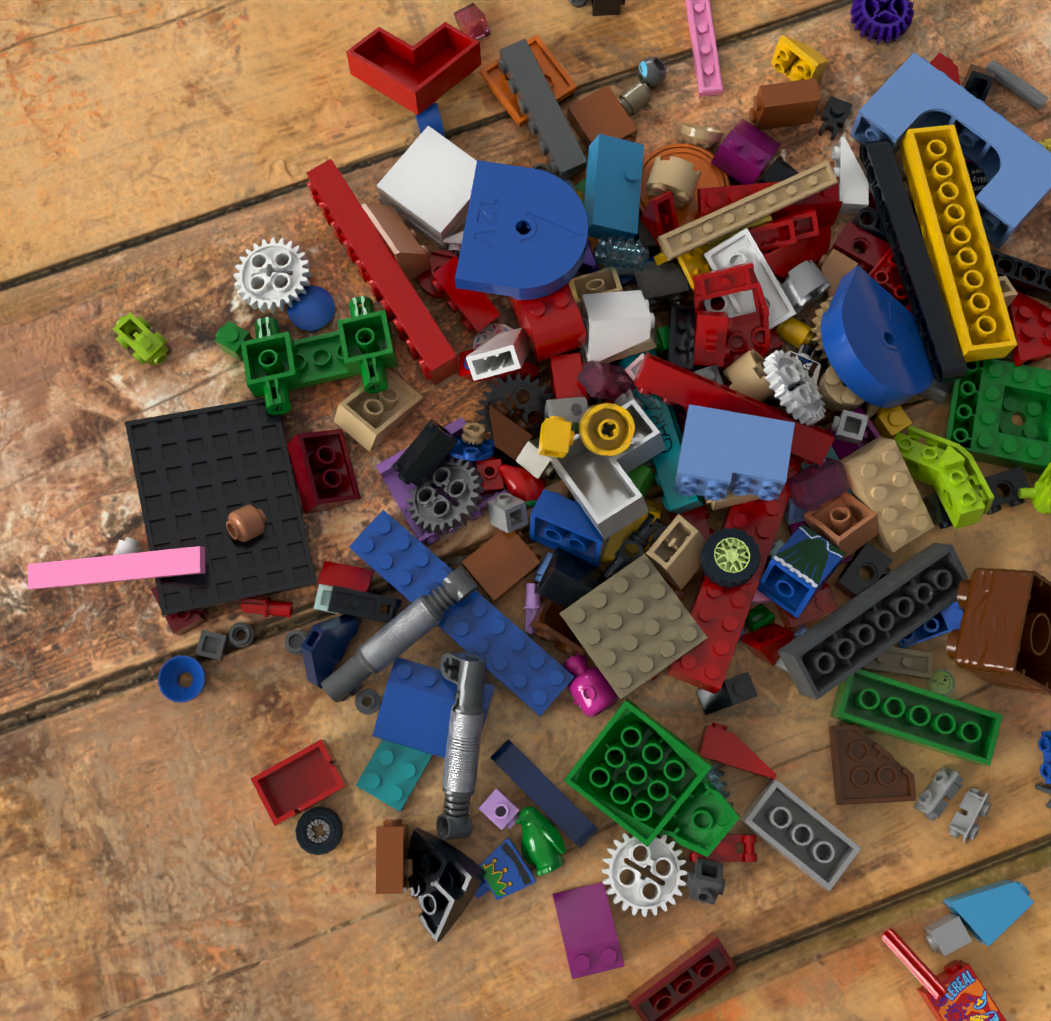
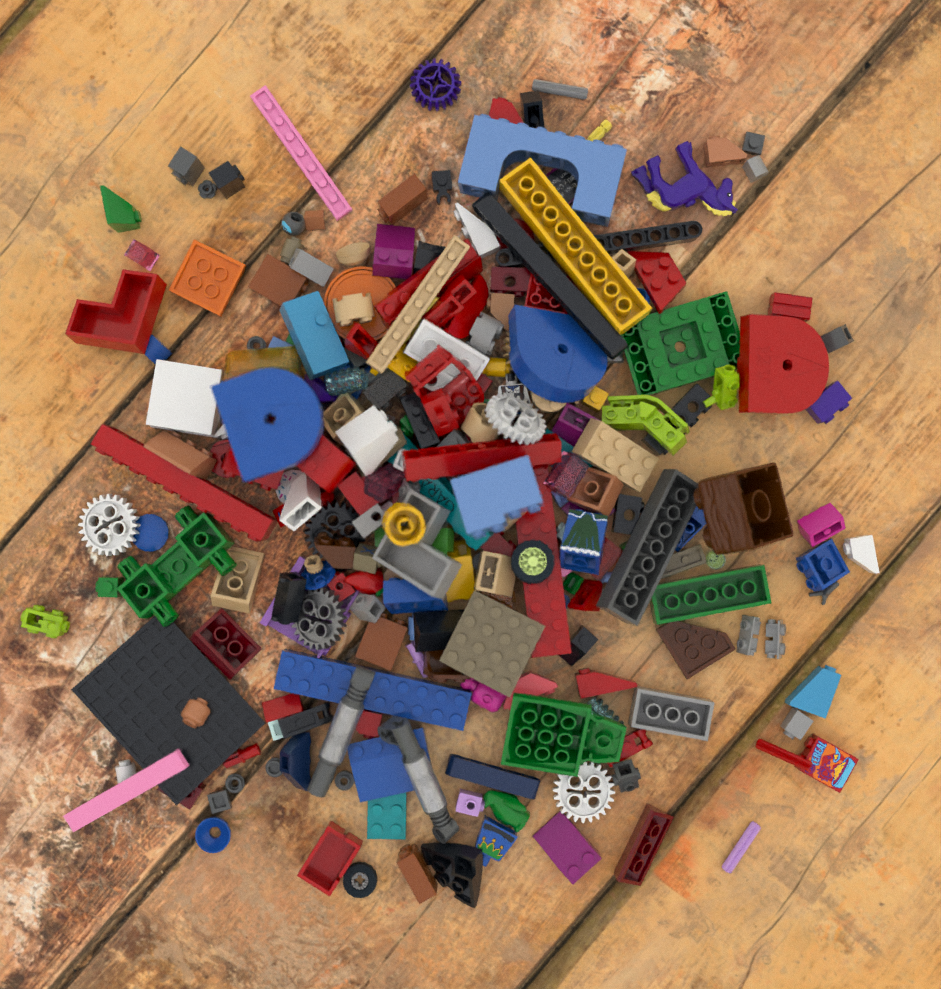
camera: 30 degrees left, 10 degrees up
(432, 648) = (369, 723): none -> red slope
(542, 110) = (231, 299): dark grey brick -> none
(555, 437) = (372, 546): yellow brick -> none
(640, 538) = (463, 580): black pin -> none
(648, 121) = (310, 267): none -> light grey hinge
(651, 704) = (531, 684): none -> coral slope
(675, 82) = (314, 220): none -> nougat slope
(798, 60) = (396, 158): yellow slope -> none
(849, 427) = (566, 425): light grey brick -> none

